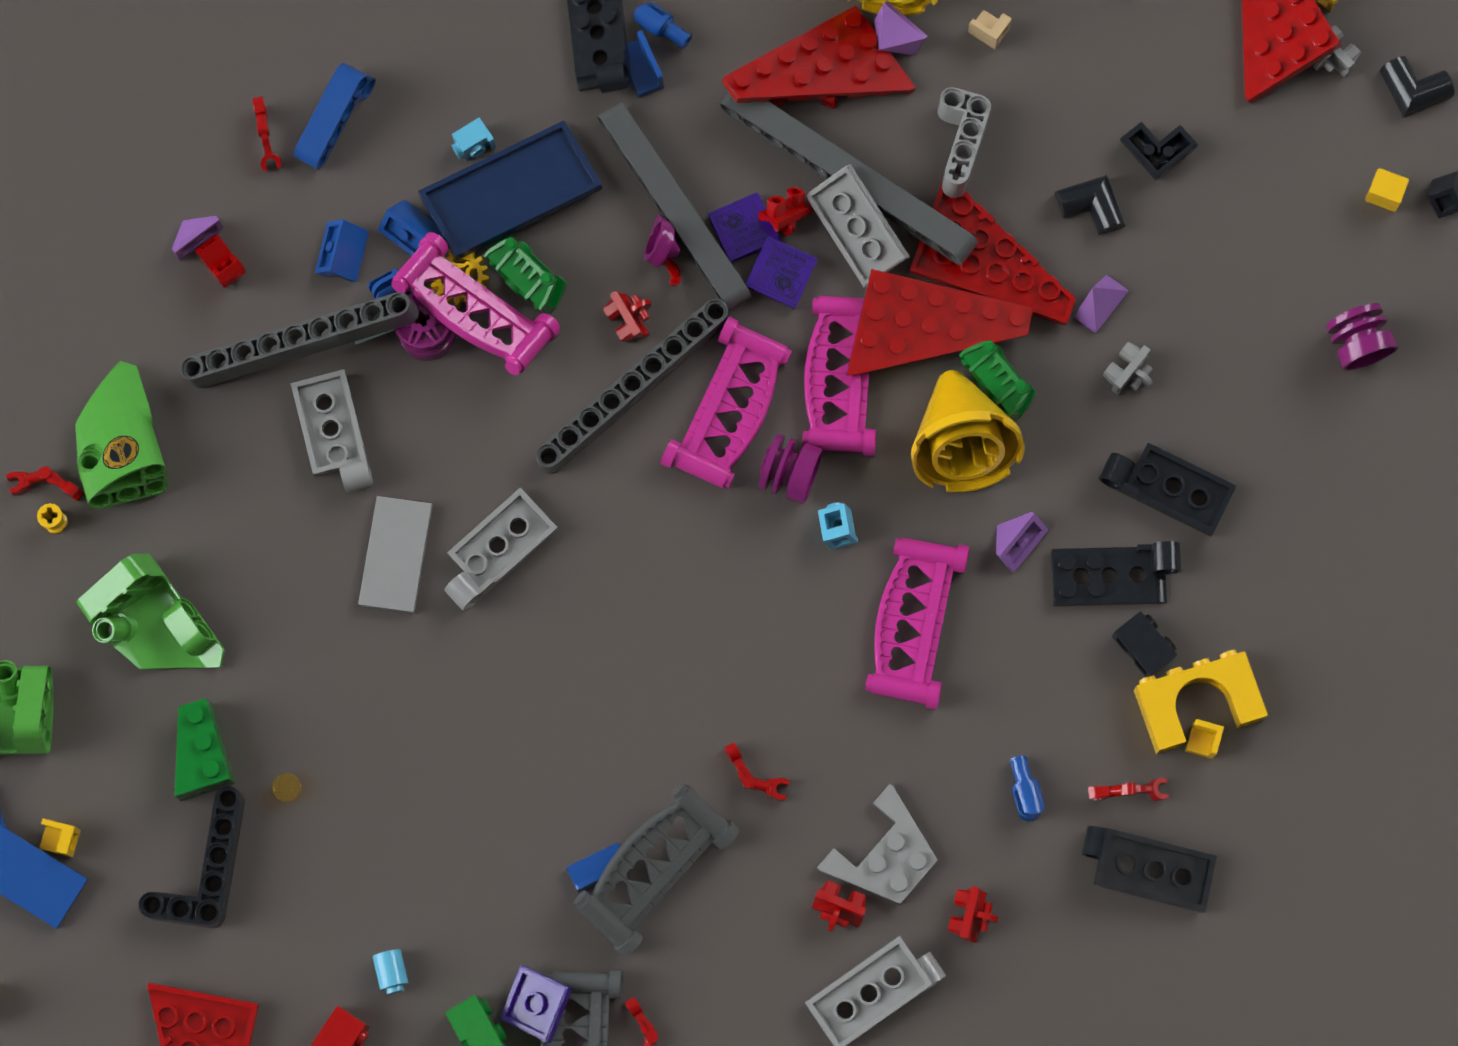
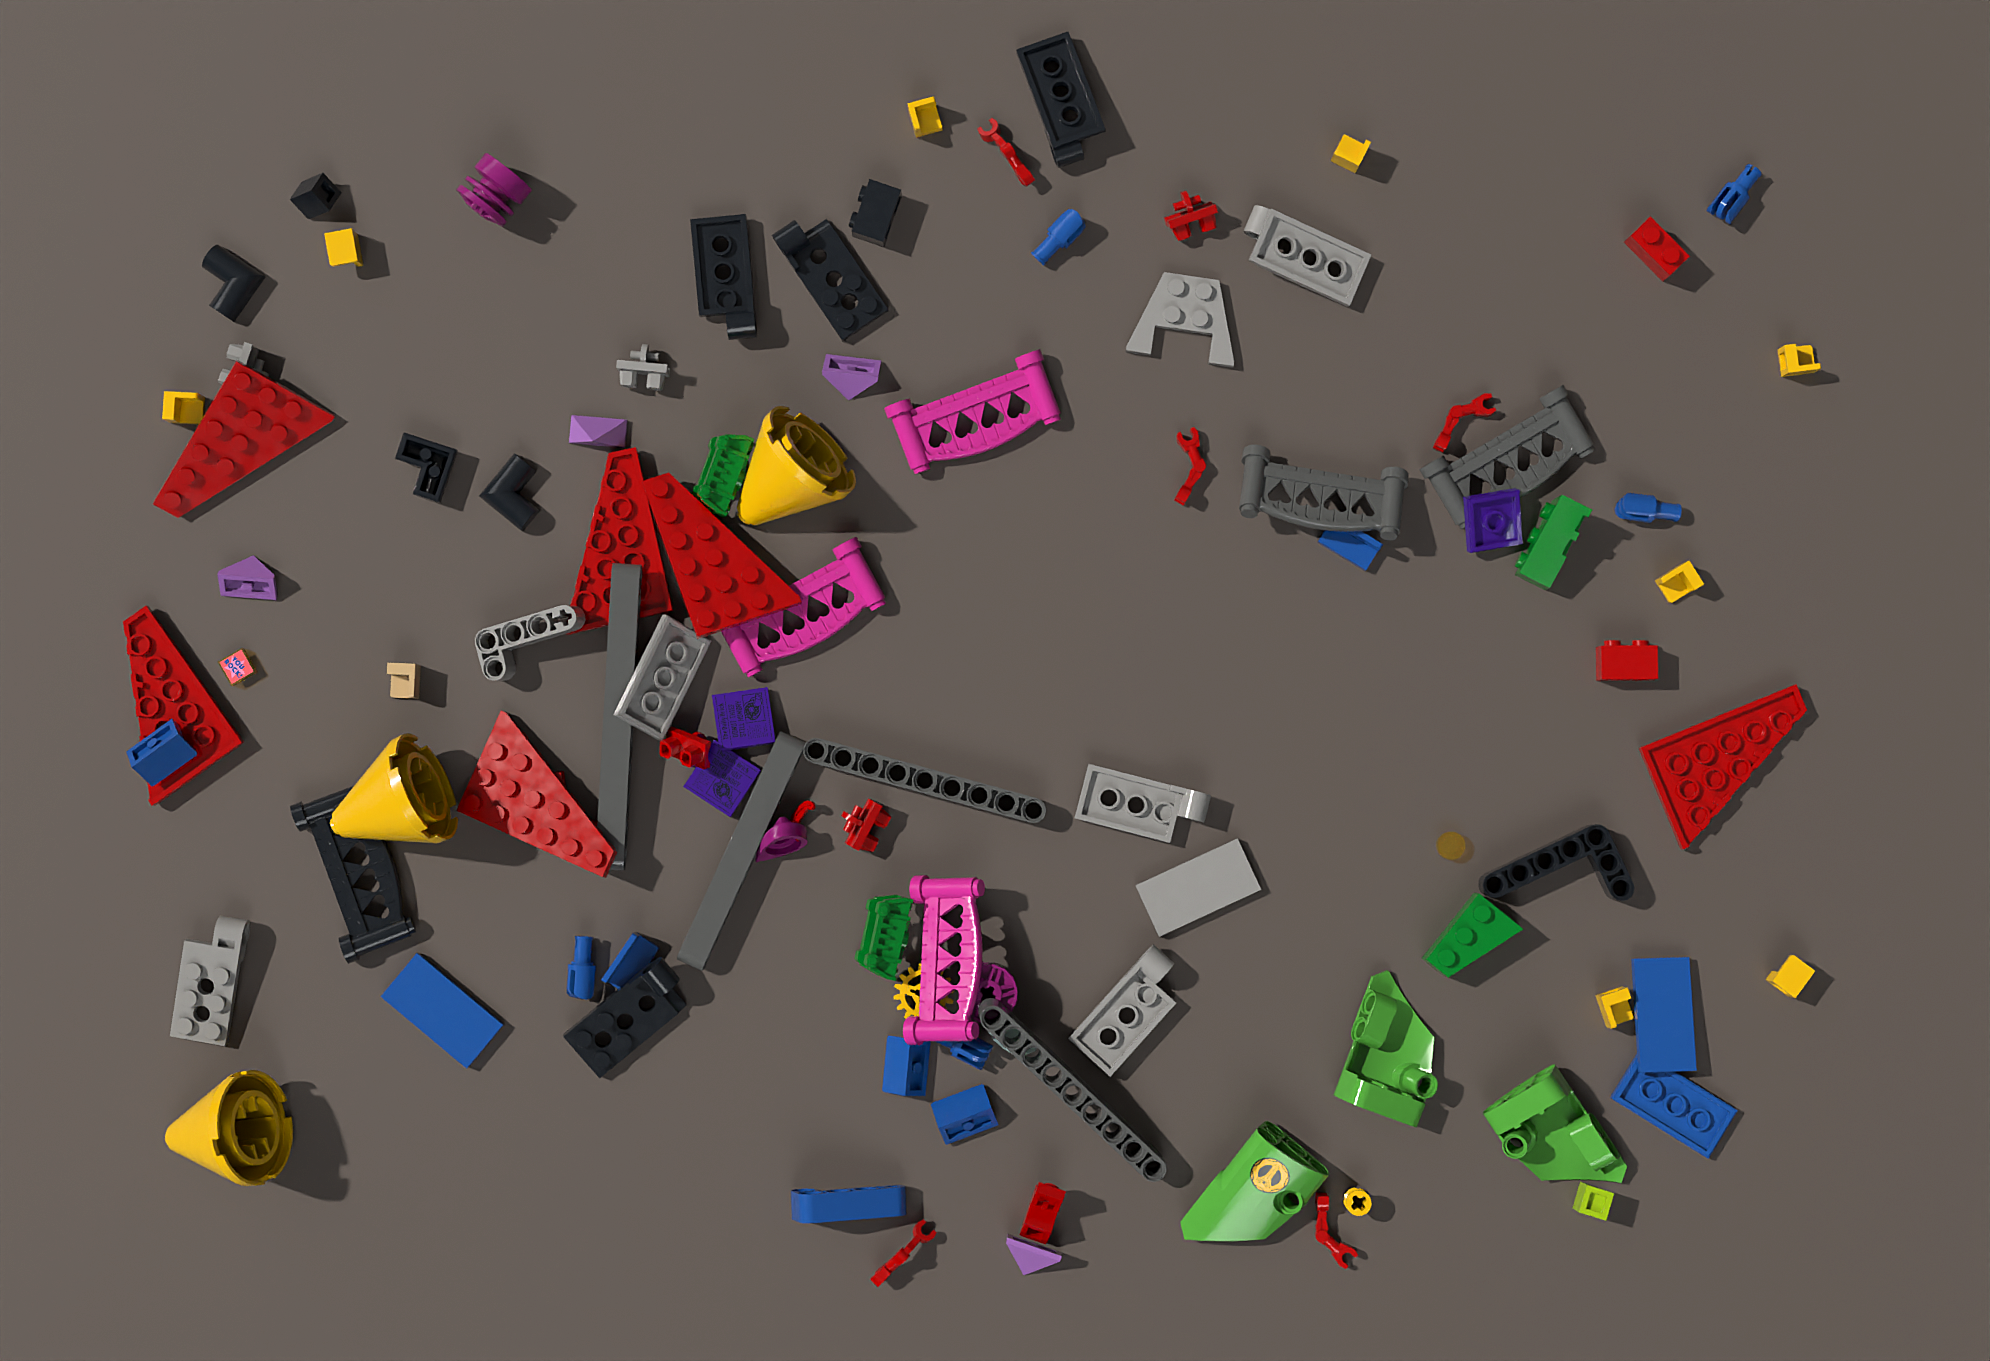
camera: 125 degrees left, 10 degrees up
(390, 971) = (1543, 656): medium azure brick -> none
(472, 140) = (793, 1065): medium azure brick -> none
(510, 190) = (817, 1001): dark blue tile -> none
(694, 453) = (950, 690): dark pink piece -> none
(790, 468) = (914, 597): magenta wheel -> none
(830, 518) = (947, 529): medium azure brick -> none
(838, 910) = (1251, 315): red hips -> none
(897, 32) = (460, 758): medium lavender slope -> none
(1229, 675) = (911, 174): yellow arch -> none

